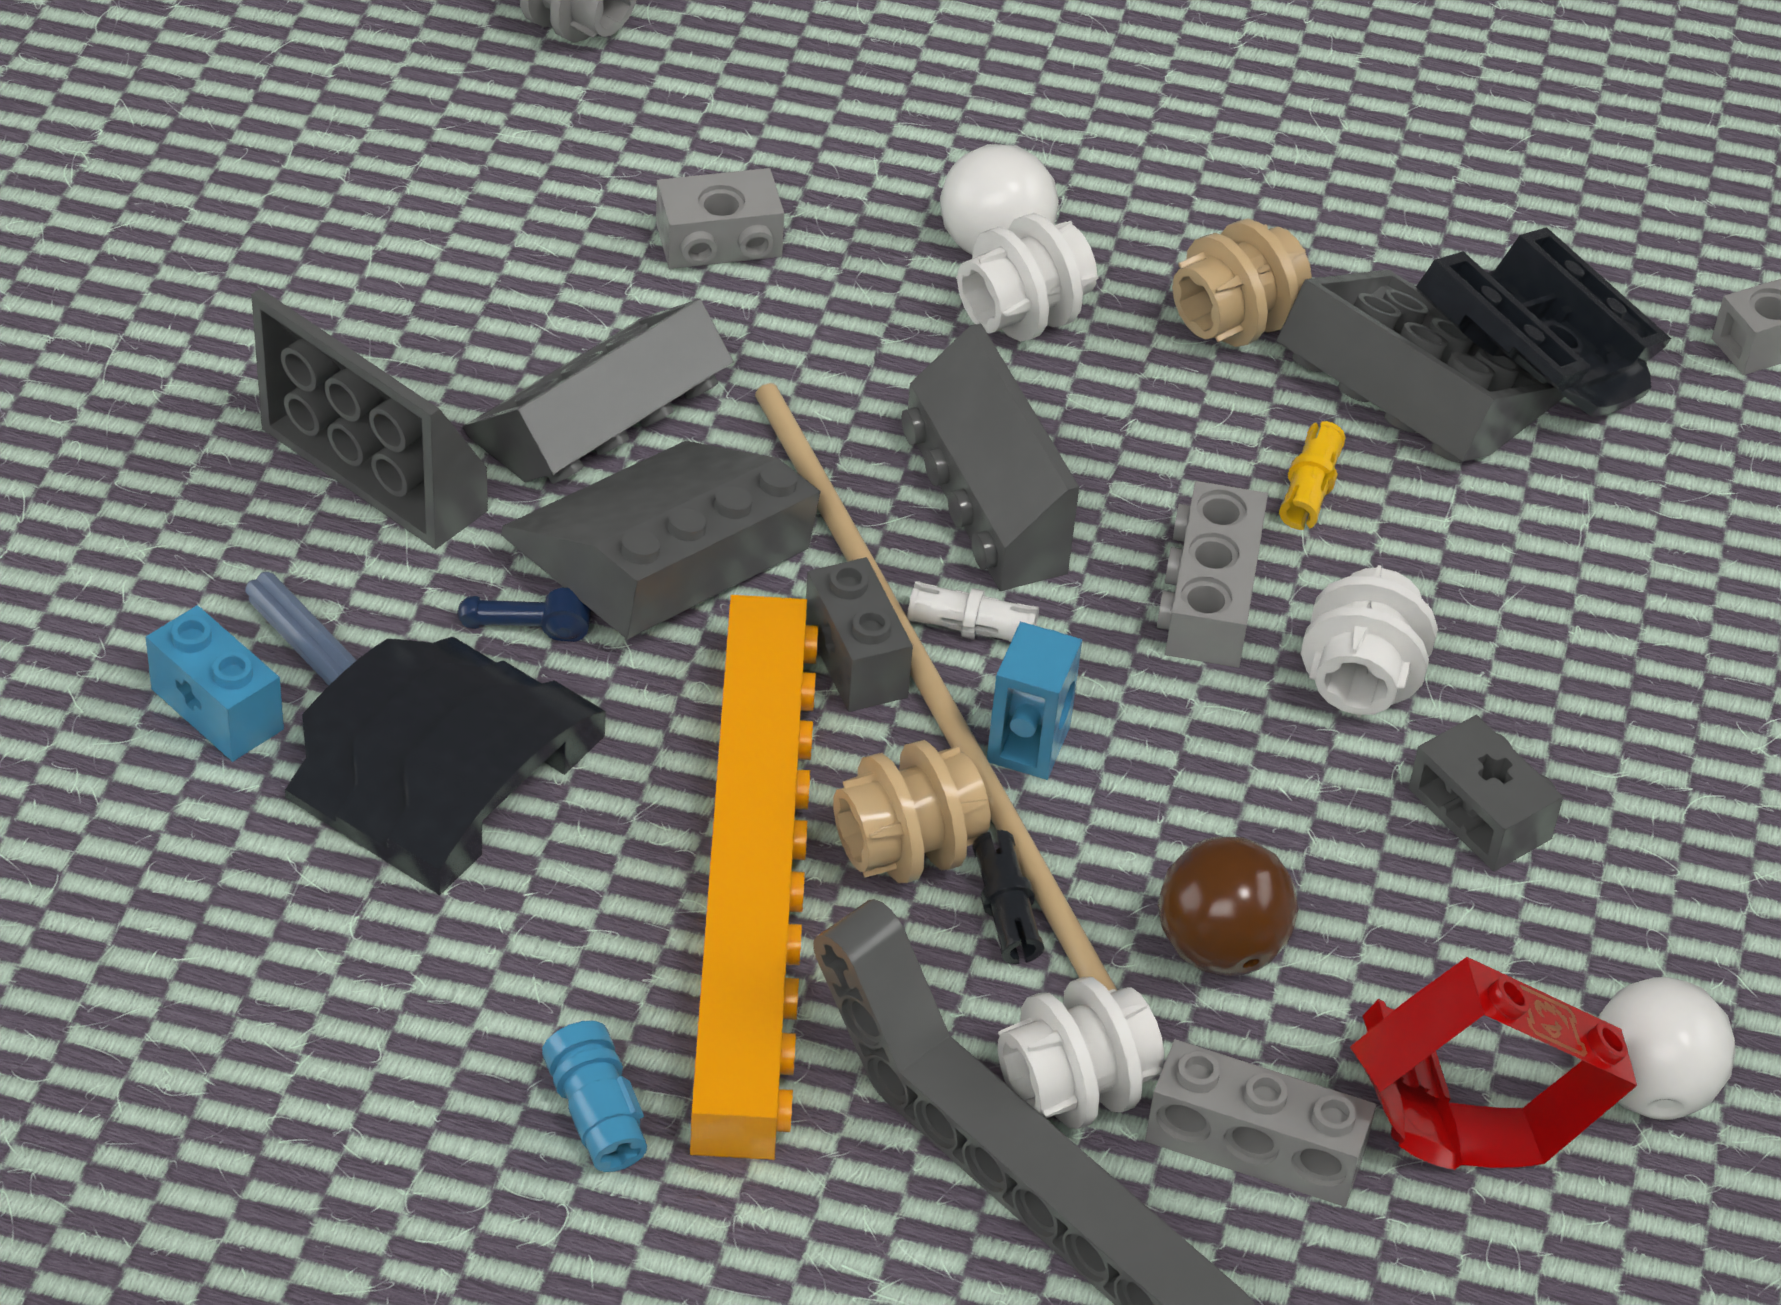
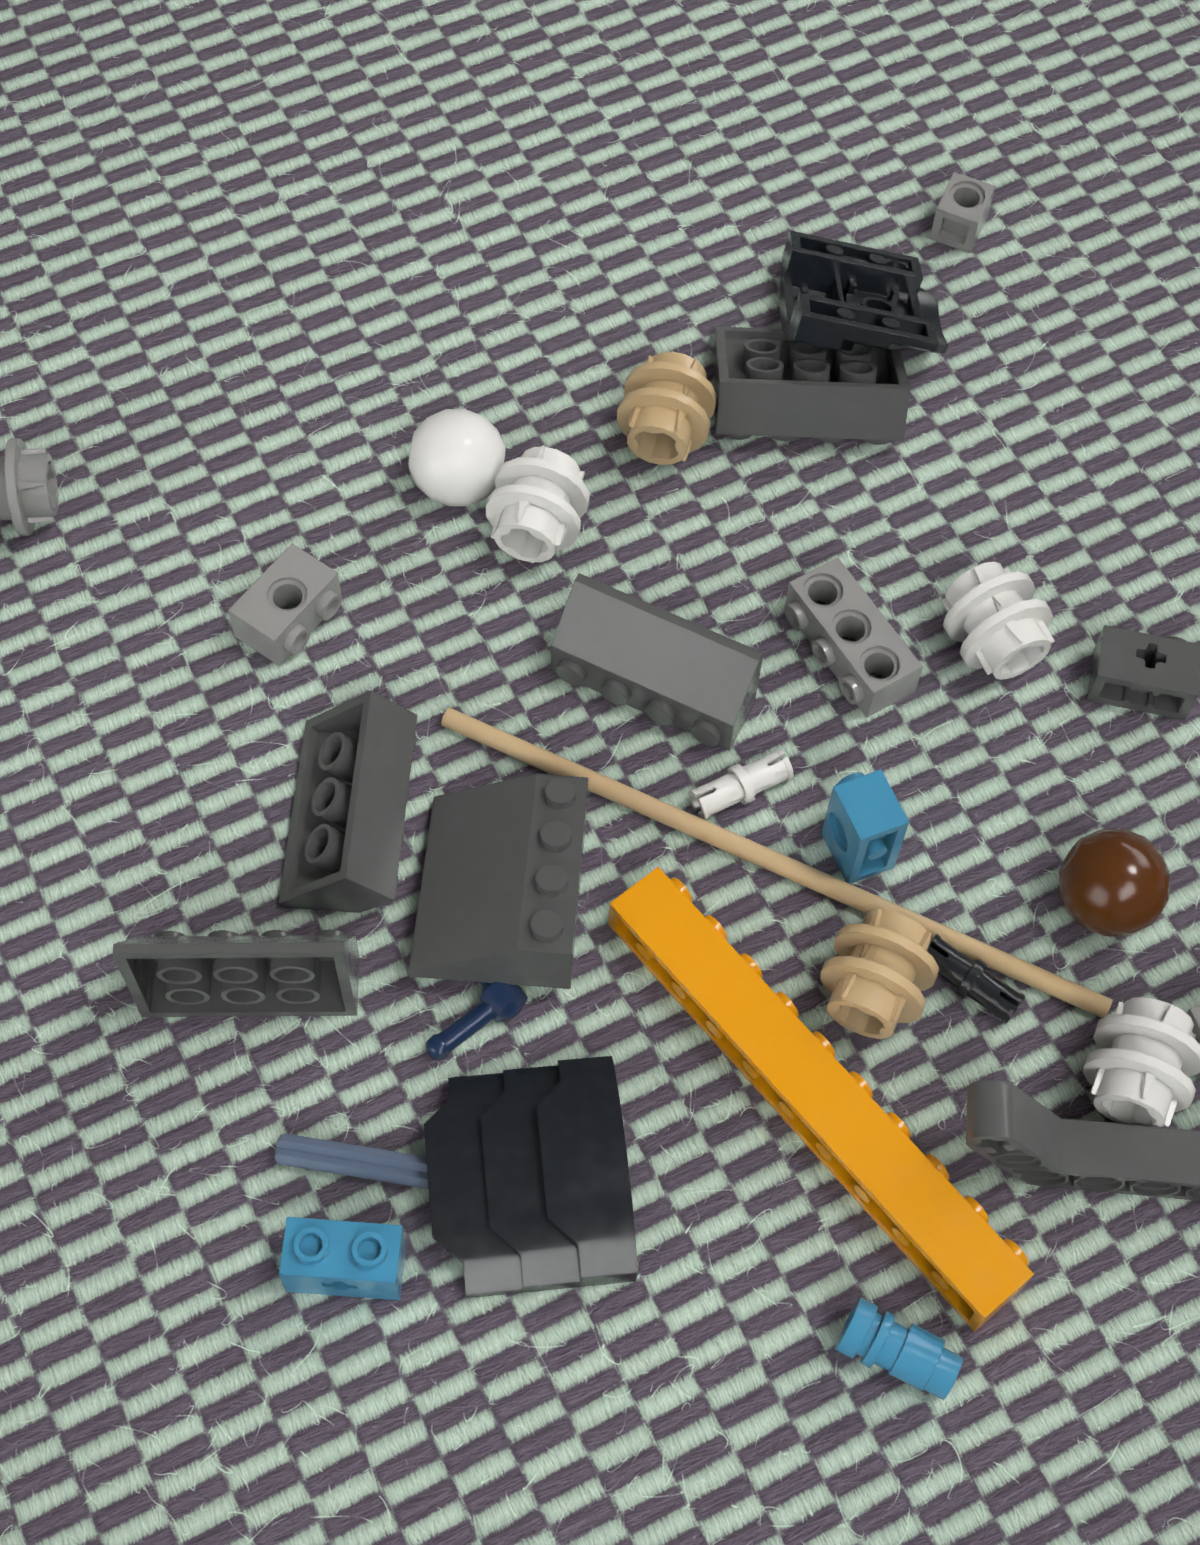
camera: 40 degrees left, 15 degrees up
(858, 634) = (705, 859): dark grey brick -> none
(1312, 475) = (826, 516): yellow pin -> none

